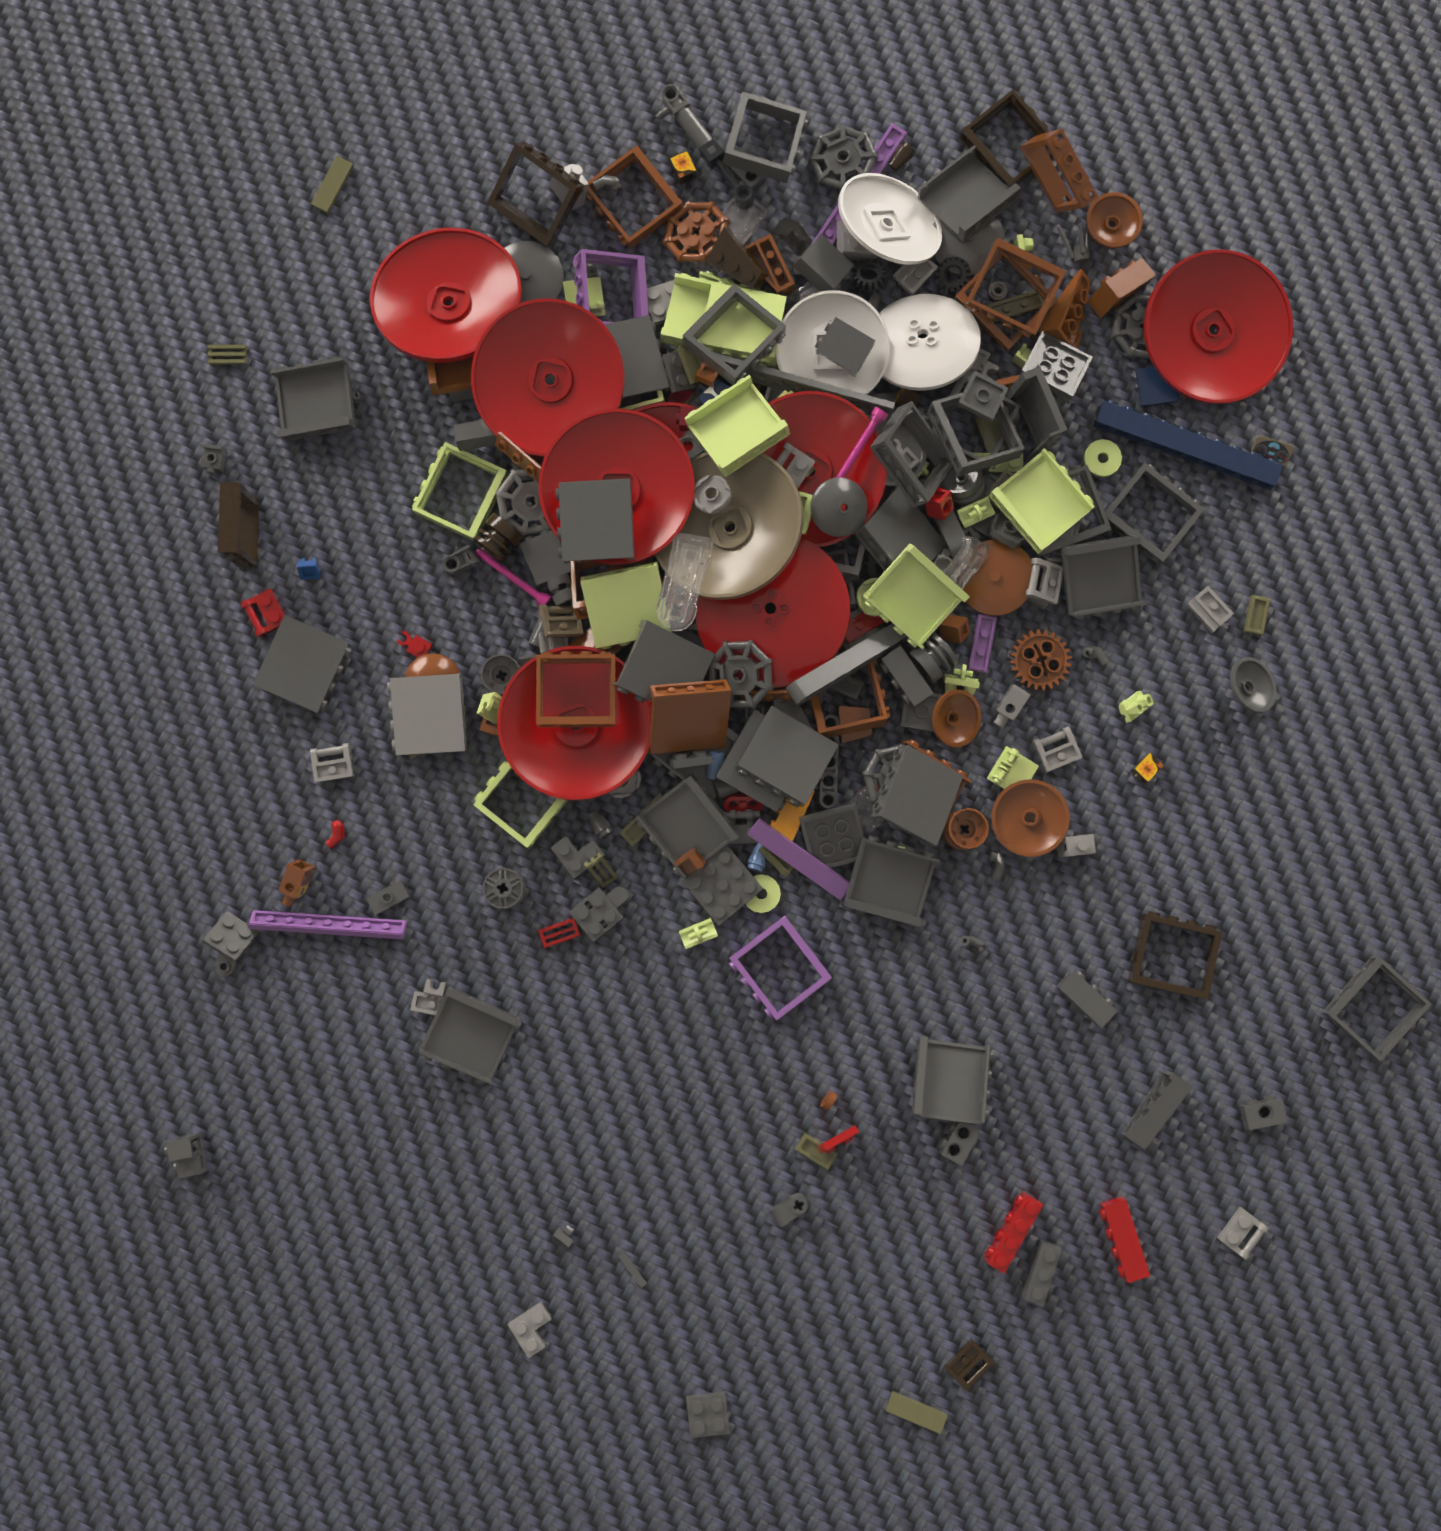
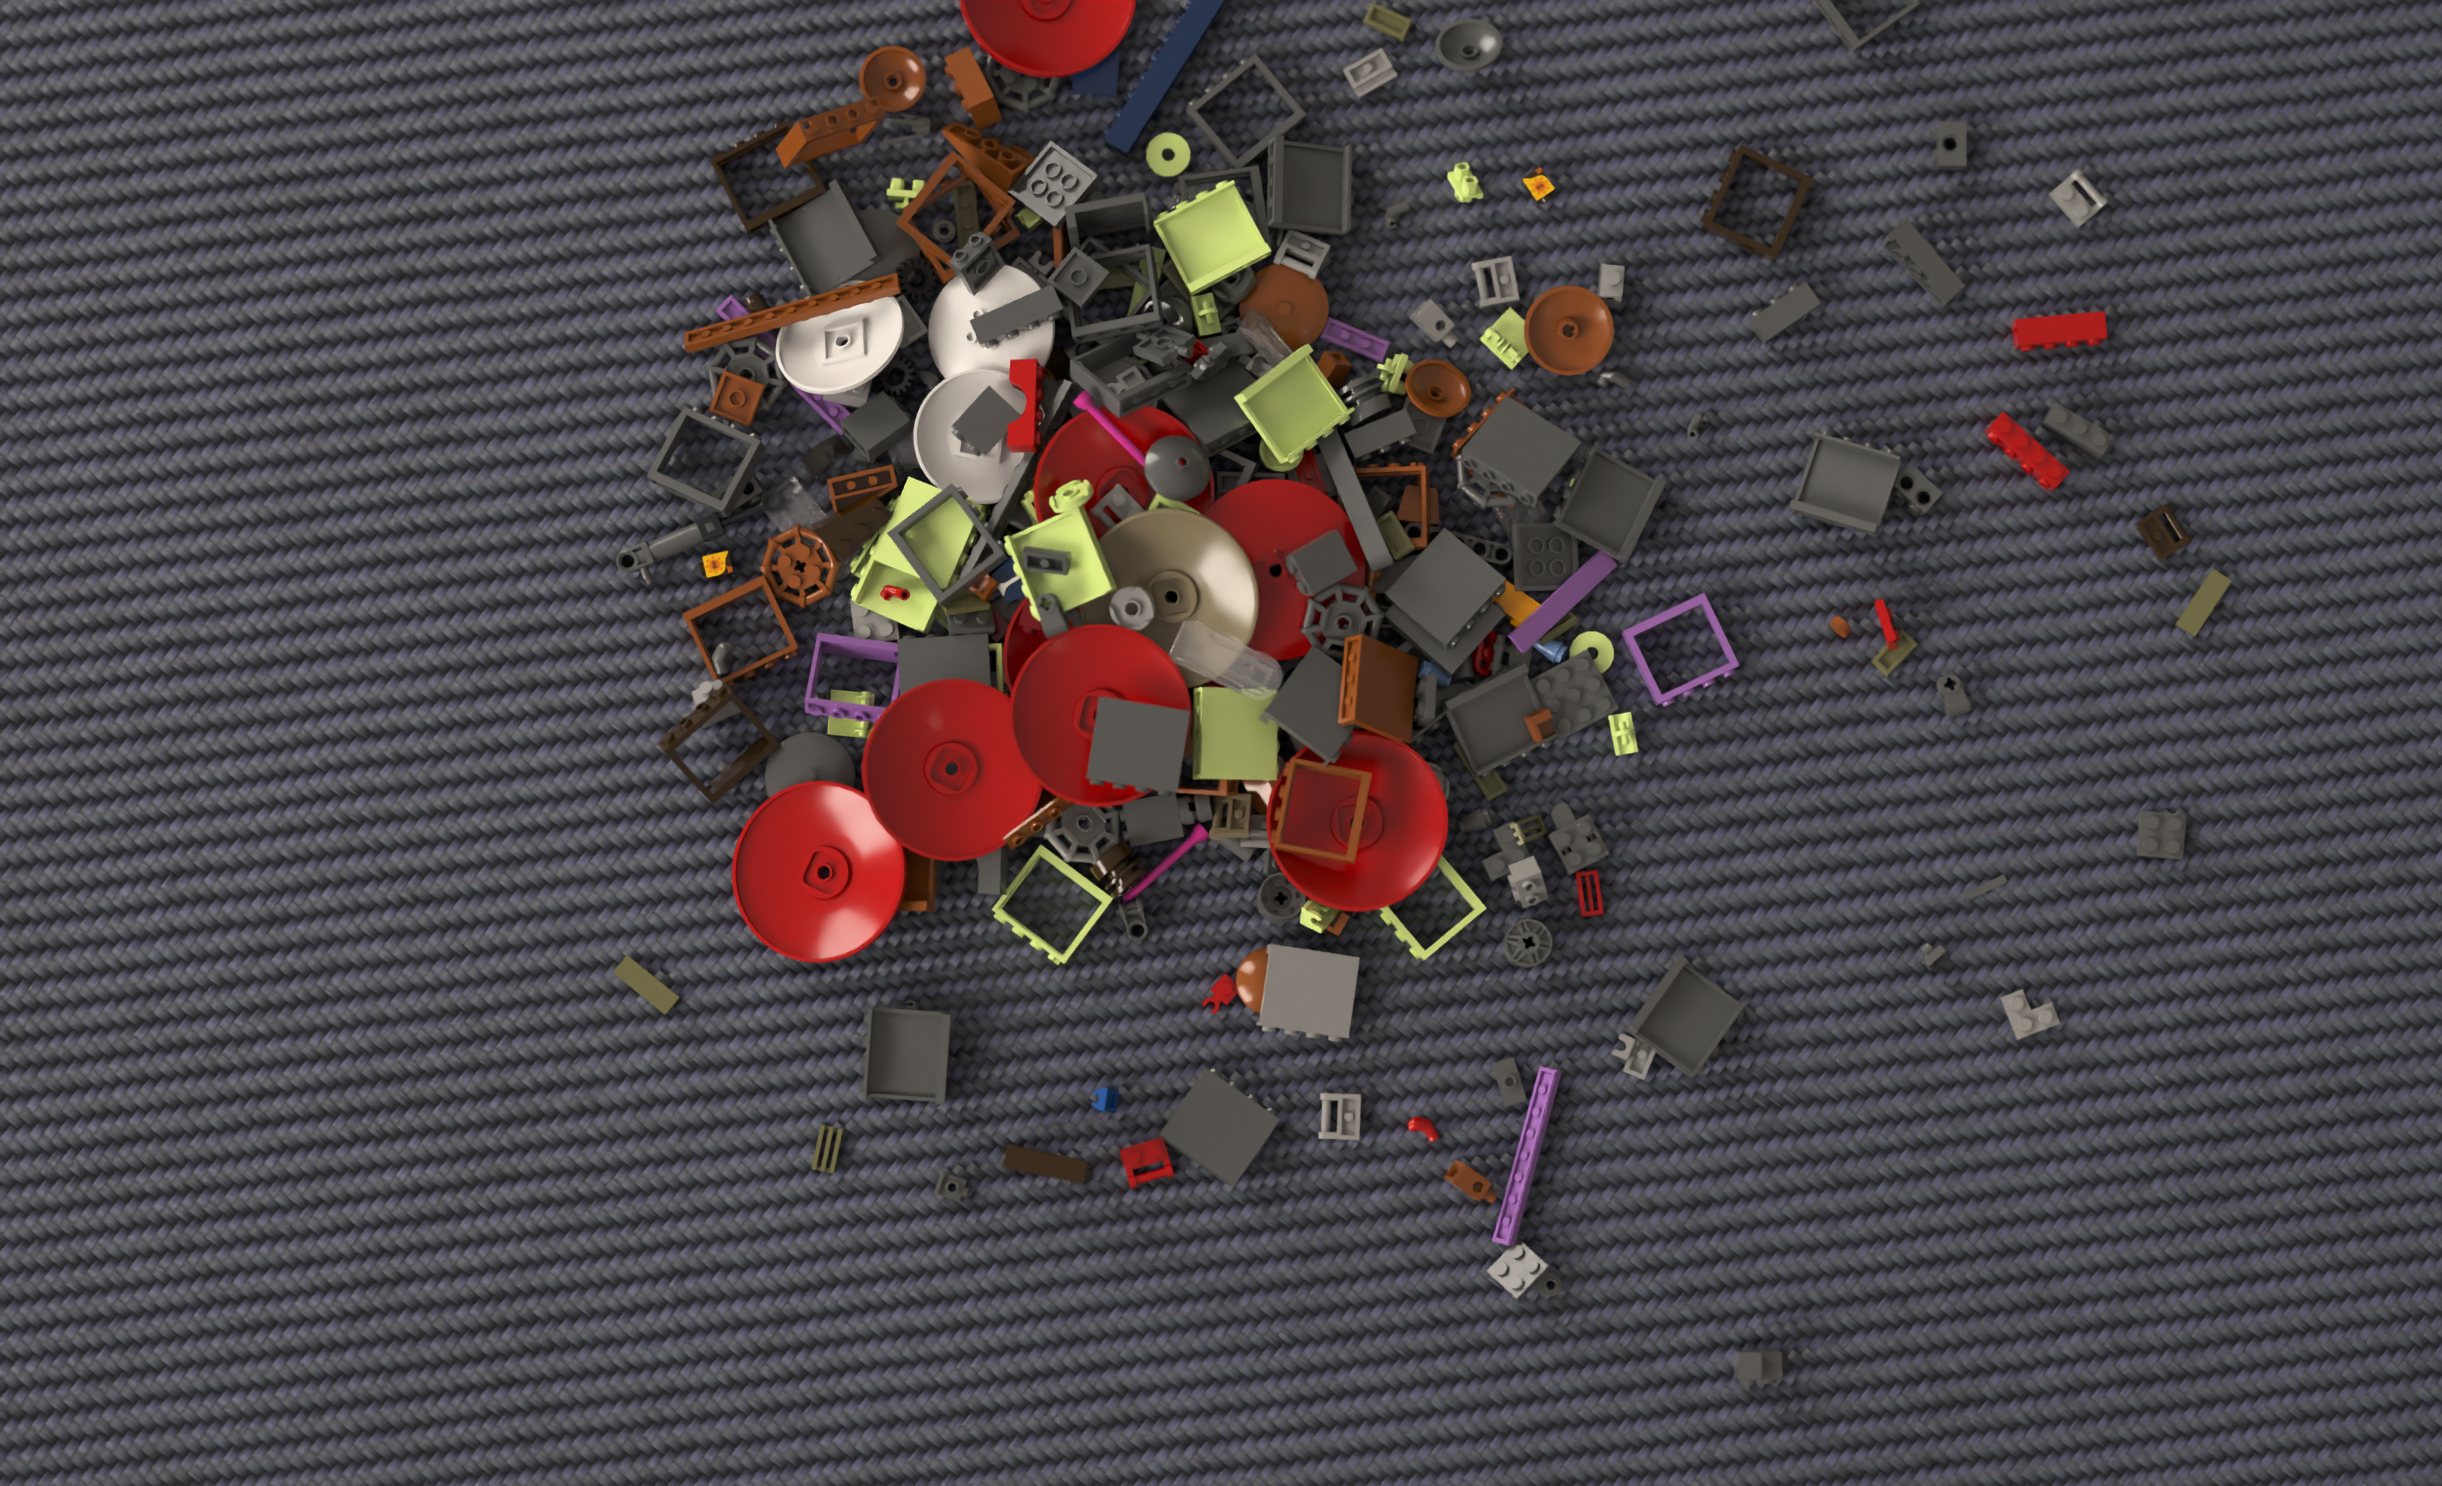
camera: 80 degrees left, 0 degrees up
(555, 877) = (1527, 882): none -> light grey brick
(689, 304) = (897, 592): none -> red arm
(689, 427) = (1053, 617): none -> dark grey piece
(736, 413) = (1046, 560): none -> dark grey brick
(783, 643) = (1320, 563): none -> dark grey brick
(794, 420) = (1071, 496): none -> yellowish green tile
(822, 152) = (737, 398): none -> dark orange tile
(823, 704) = (1395, 535): none -> olive tile
(842, 377) = (1024, 432): none -> red arch
(902, 178) = (792, 312): none -> dark orange plate
(938, 352) = (1017, 316): none -> dark grey brick
(939, 523) = (1217, 359): none -> dark grey plate
(941, 476) = (1164, 345): none -> dark grey plate
(975, 829) = (1567, 394): dark orange wheel -> none
(976, 311) = (977, 262): none -> dark grey plate
(1057, 655) = (1392, 298): dark orange gear -> none

